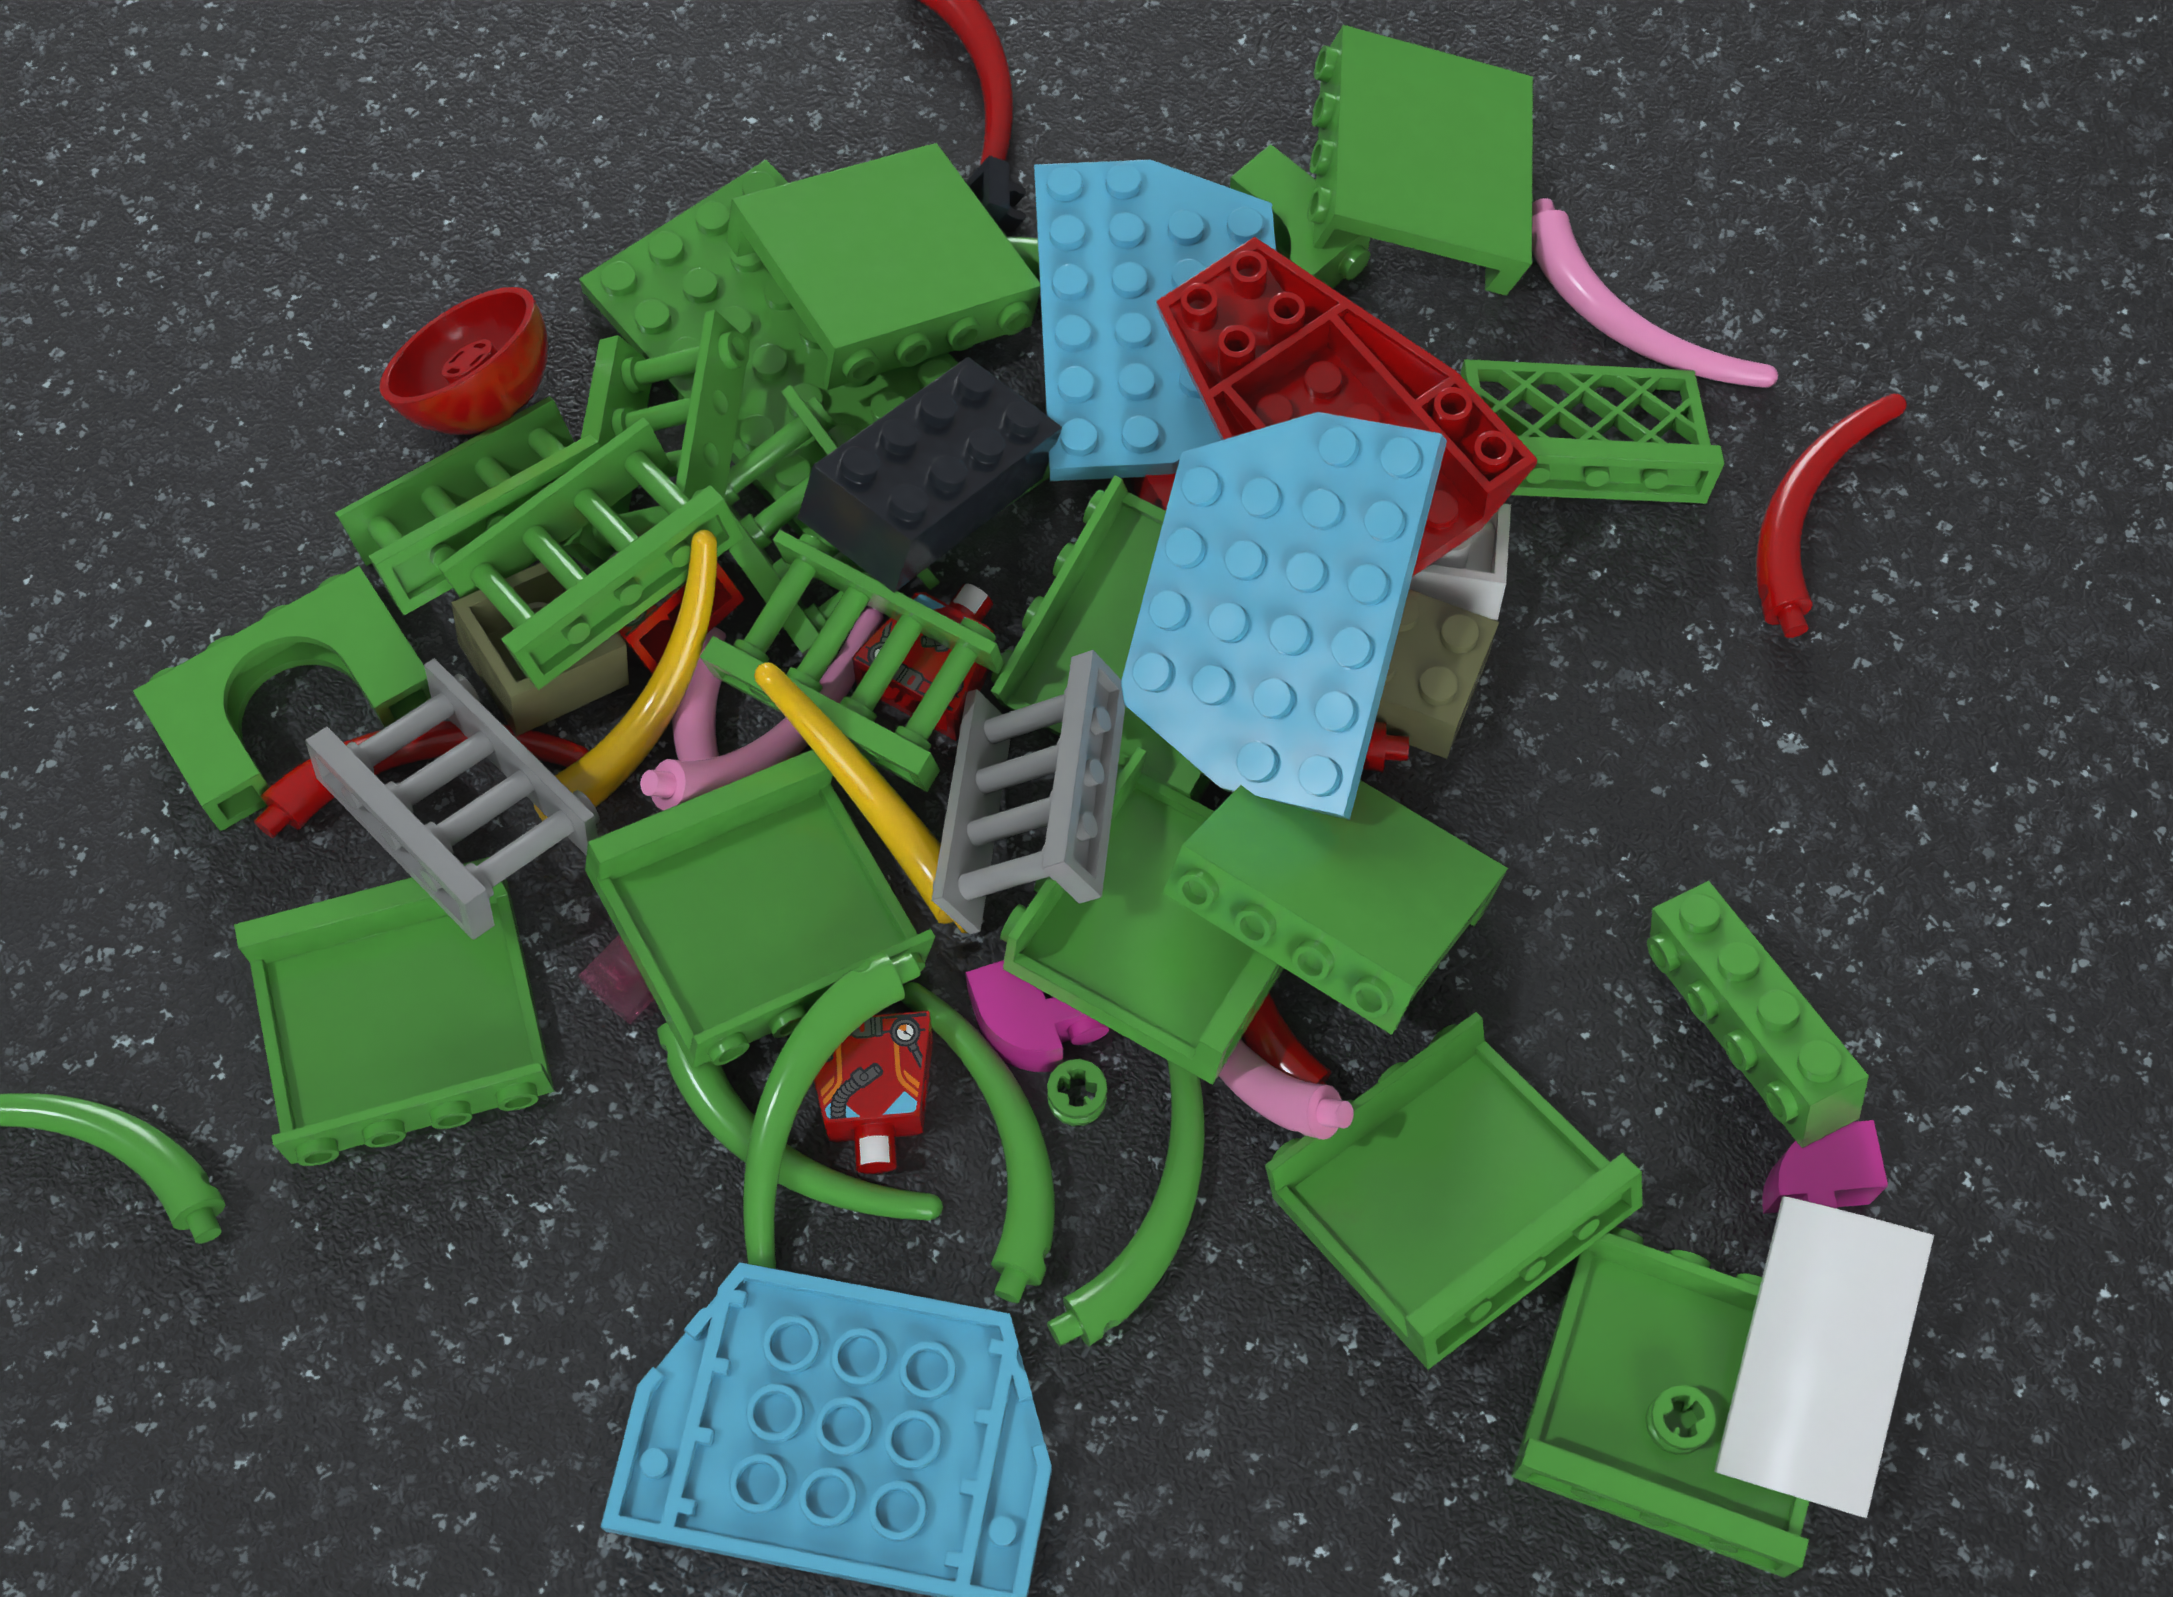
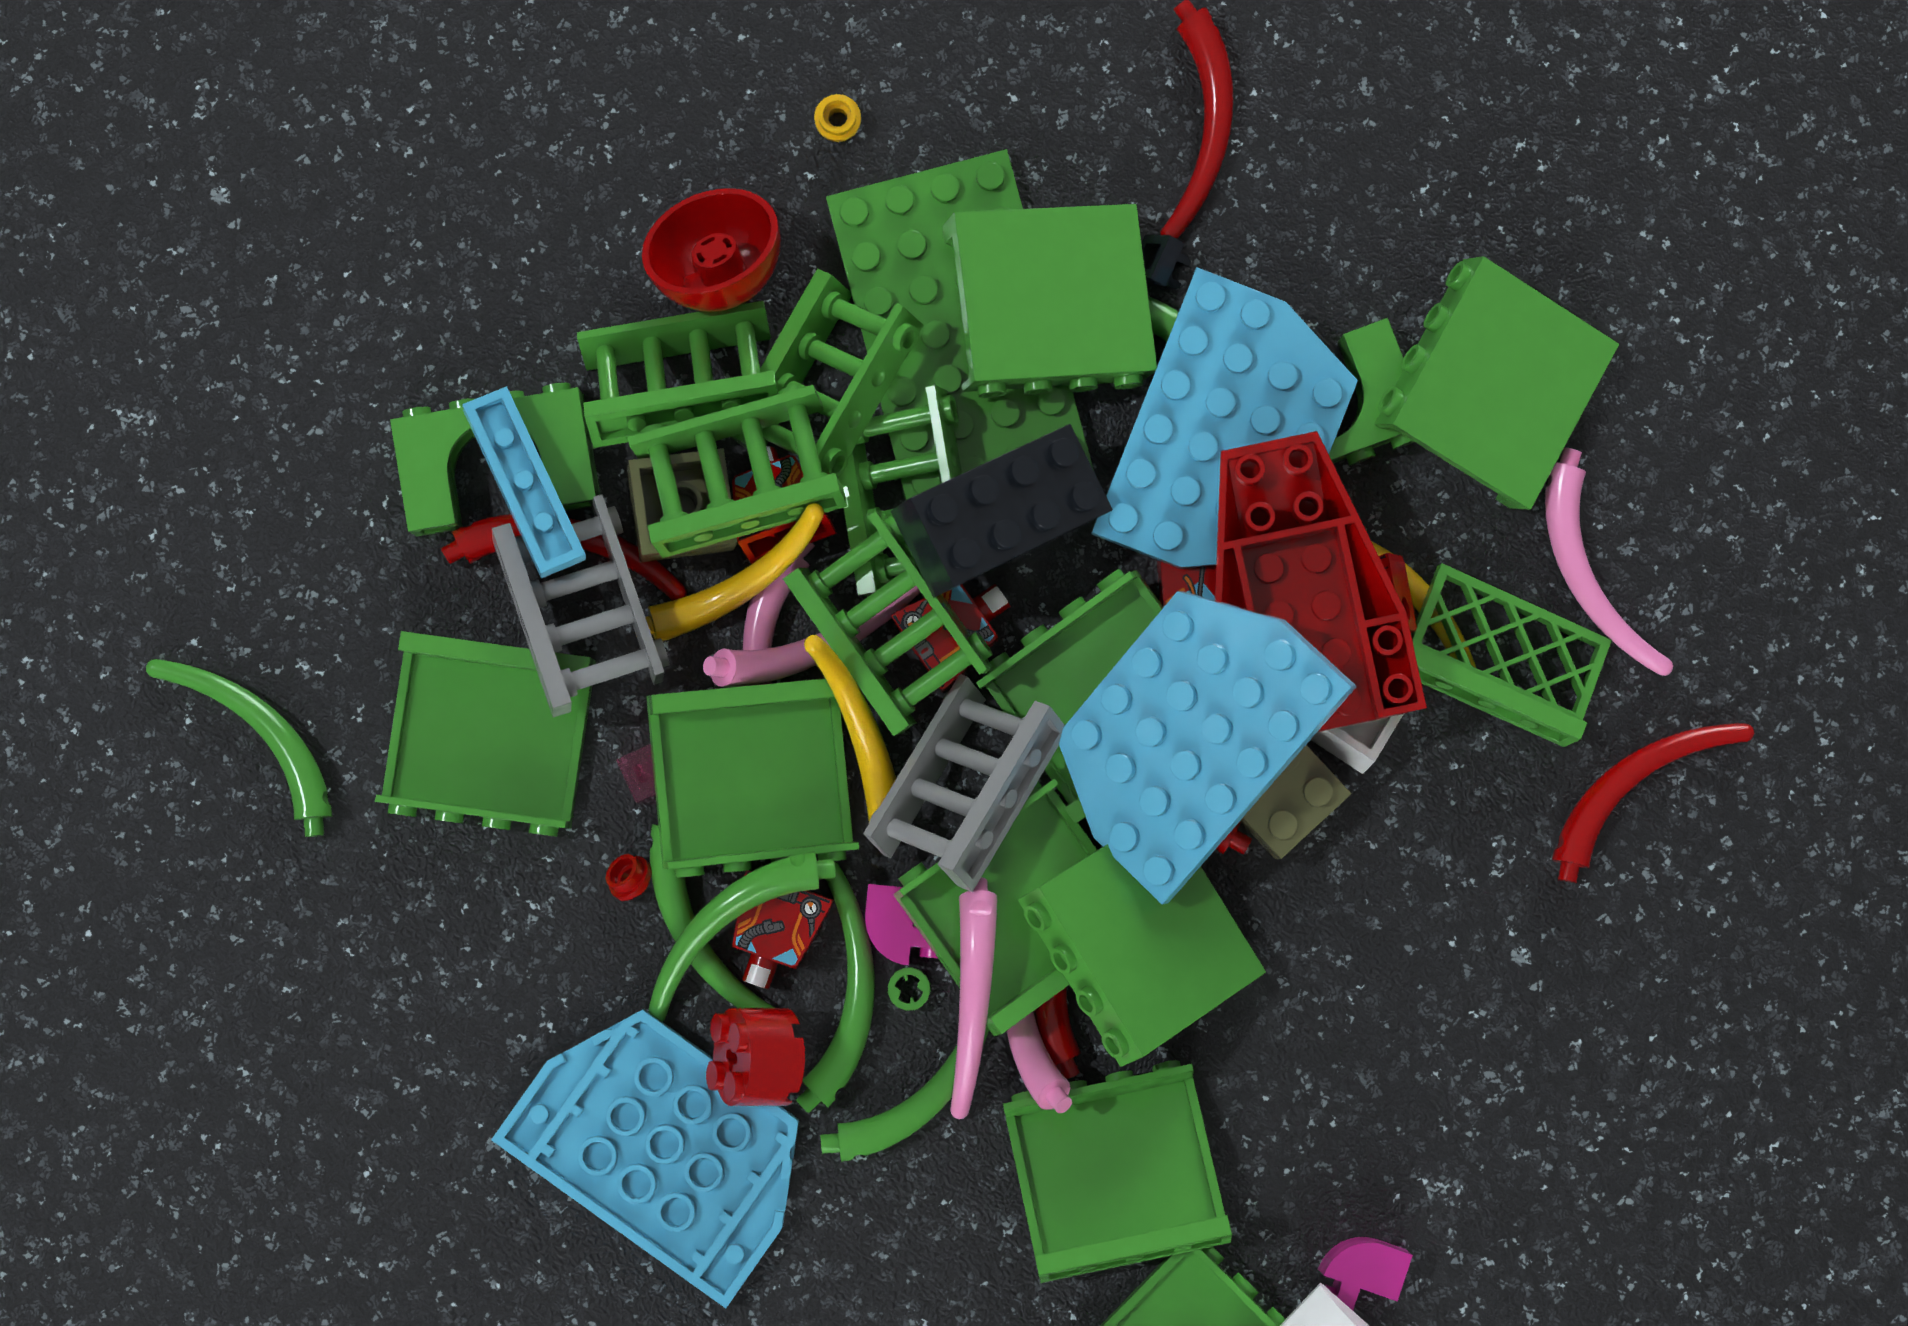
camera: 25 degrees right, 20 degrees up
(329, 678) = (524, 482): none -> medium azure plate
(556, 190) = (834, 104): none -> yellow plate
(653, 1108) = (628, 876): none -> red plate
(916, 1239) = (755, 1056): none -> red brick
(1142, 972) = (977, 950): none -> bright pink animal
(1757, 1014) = (1373, 1150): bright green brick -> none

